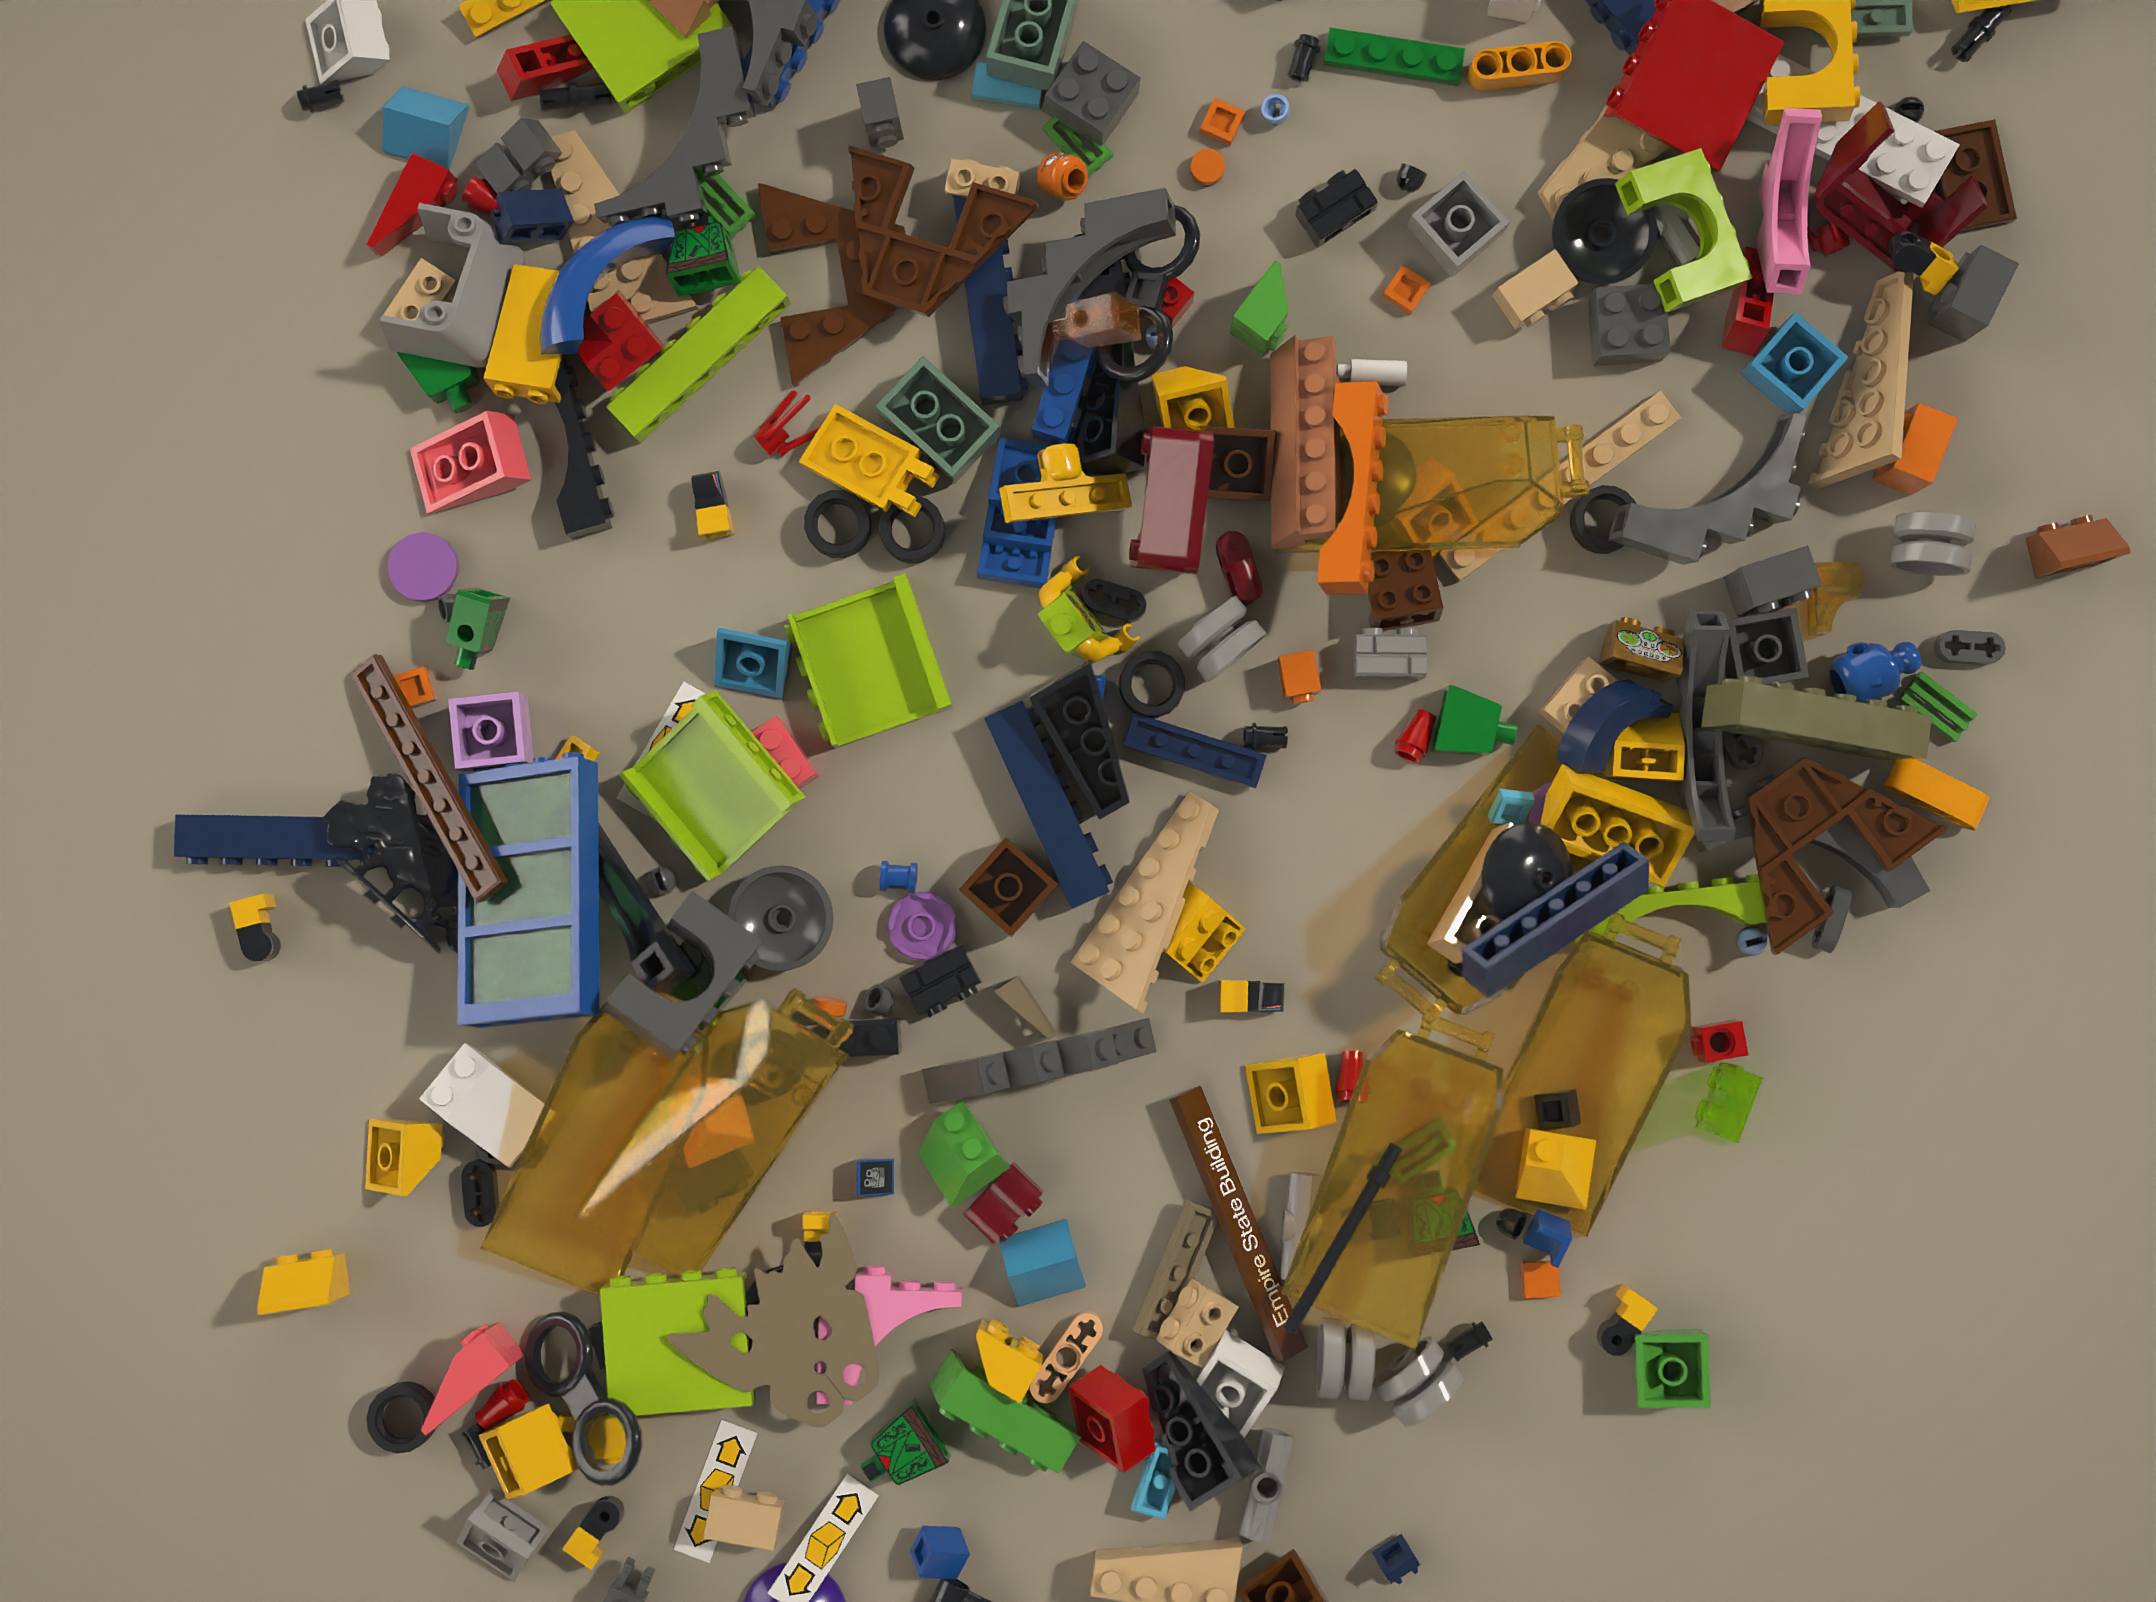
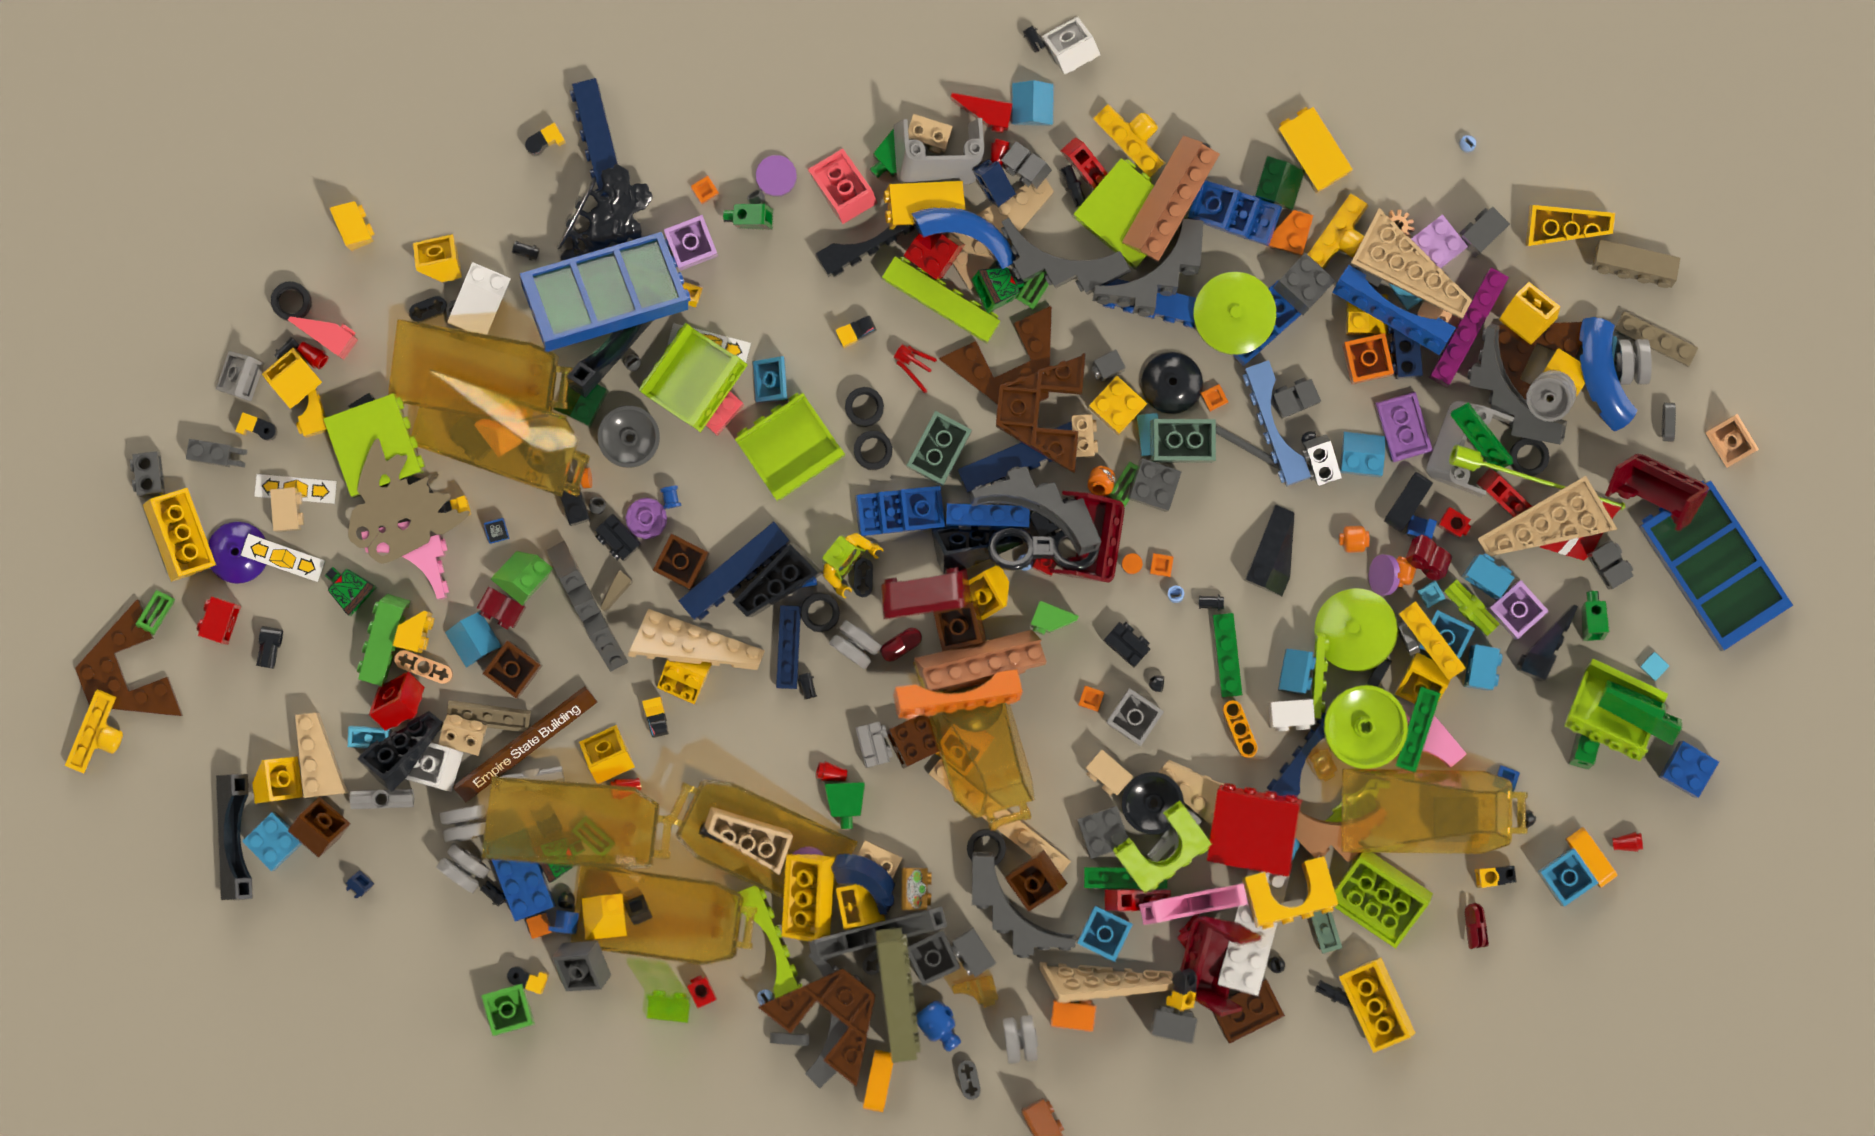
camera: 70 degrees right, 0 degrees up
(428, 1007) = (526, 250): none -> black pin
(429, 778) = (654, 215): reddish brown tile -> none
(584, 1398) = (330, 400): black bar -> none
(670, 1023) = (551, 393): dark grey arch -> none
(867, 461) = (904, 413): yellow tile -> none
(939, 1552) = (295, 624): blue panel -> none
(947, 118) = (1117, 405): none -> yellow brick
(1064, 489) = (916, 531): yellow plate -> none
(1099, 321) = (1014, 525): clear orange torso -> none
(1111, 1212) = (512, 669): none -> reddish brown brick
(1119, 177) = (1108, 520): none -> dark red windscreen
(1299, 676) = (847, 695): orange brick -> none
(1377, 1178) = (571, 814): black bar -> none
(1383, 371) = (1036, 692): white cylinder -> none
(1481, 1288) = (524, 887): none -> blue brick
(1511, 807) = (803, 836): medium azure tile -> none
(1516, 865) = (763, 842): black dish -> none
(1555, 919) = (742, 872): dark blue brick -> none
(1629, 1227) = (581, 966): none -> dark grey slope
(1682, 450) = (1036, 880): none -> reddish brown brick
(1703, 336) = (1112, 878): none -> green plate
(1961, 724) = (923, 1086): bright green tile -> none

